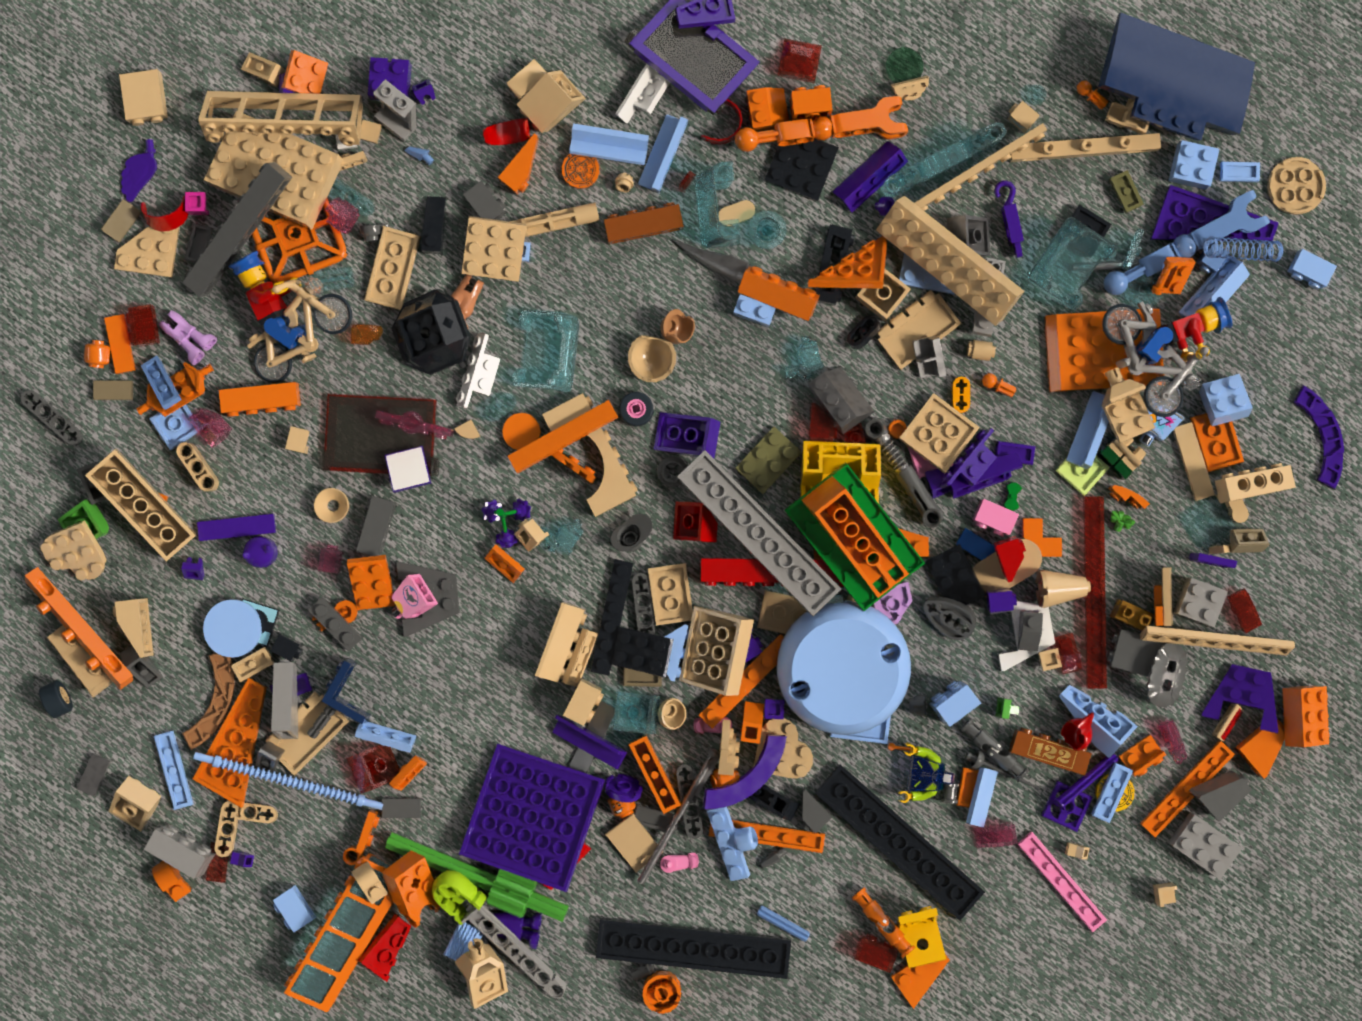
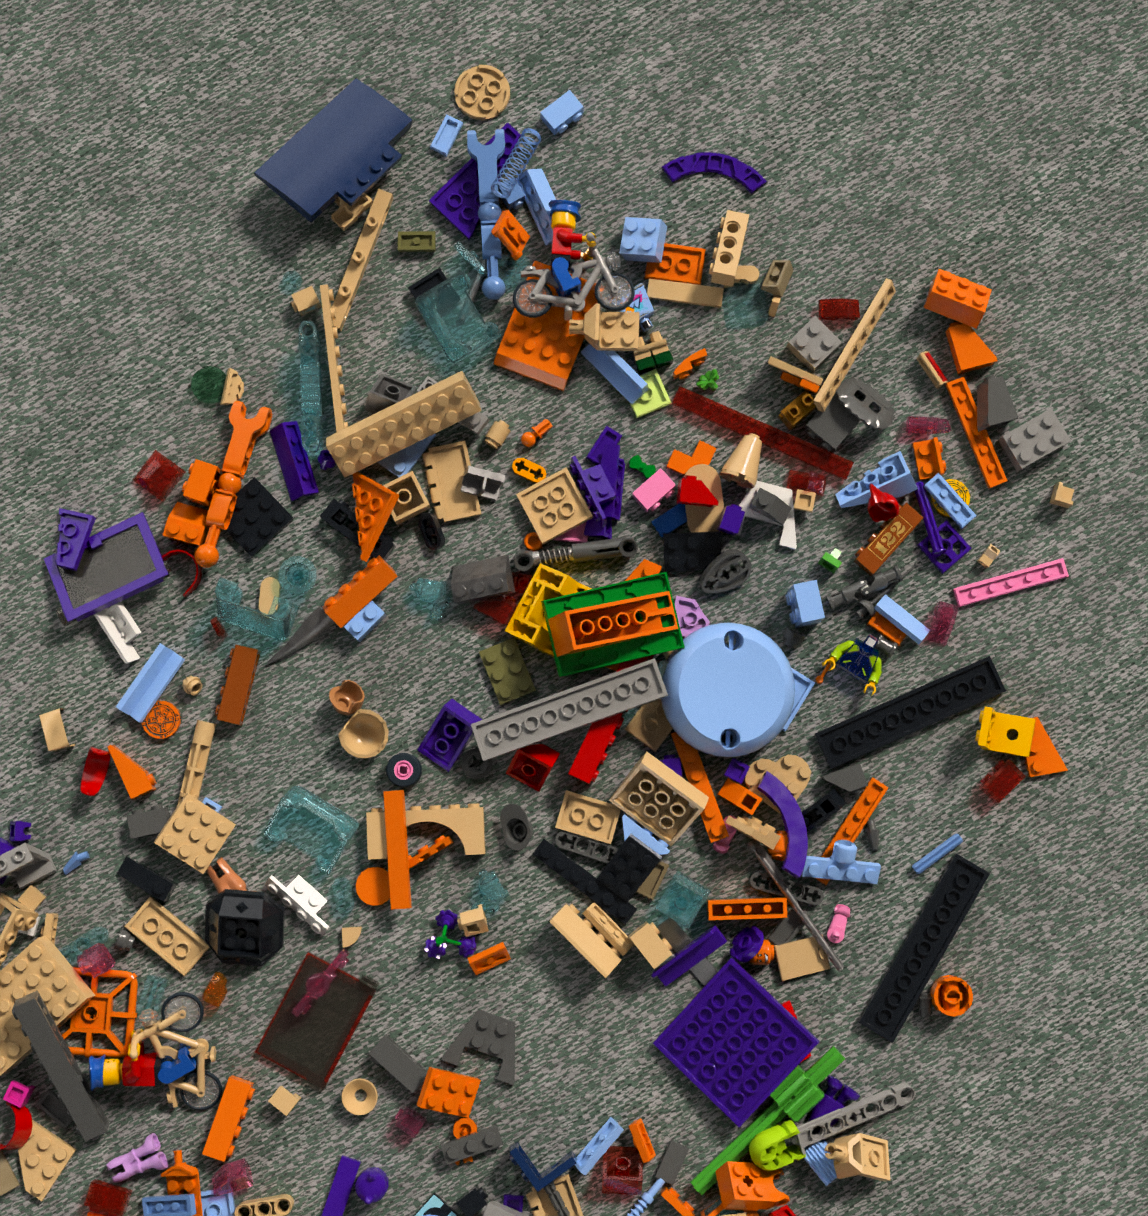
camera: 65 degrees left, 5 degrees down
(408, 469) = (359, 1008): white tile -> none
(412, 598) = (481, 1060): bright pink torso -> none
(550, 101) = (84, 718): tan slope -> none
(663, 153) = (182, 637): light blue panel -> none
(671, 713) = (698, 867): tan piece -> none
(876, 914) = (966, 764): orange piece -> none
(1011, 218) = (391, 353): dark purple piece -> none
(1085, 88) = (307, 235): orange axle -> none
(1193, 165) = (421, 172): light blue brick -> none
(1212, 560) = (781, 316): dark purple piece -> none
(1246, 688) = (909, 339): dark purple wing -> none

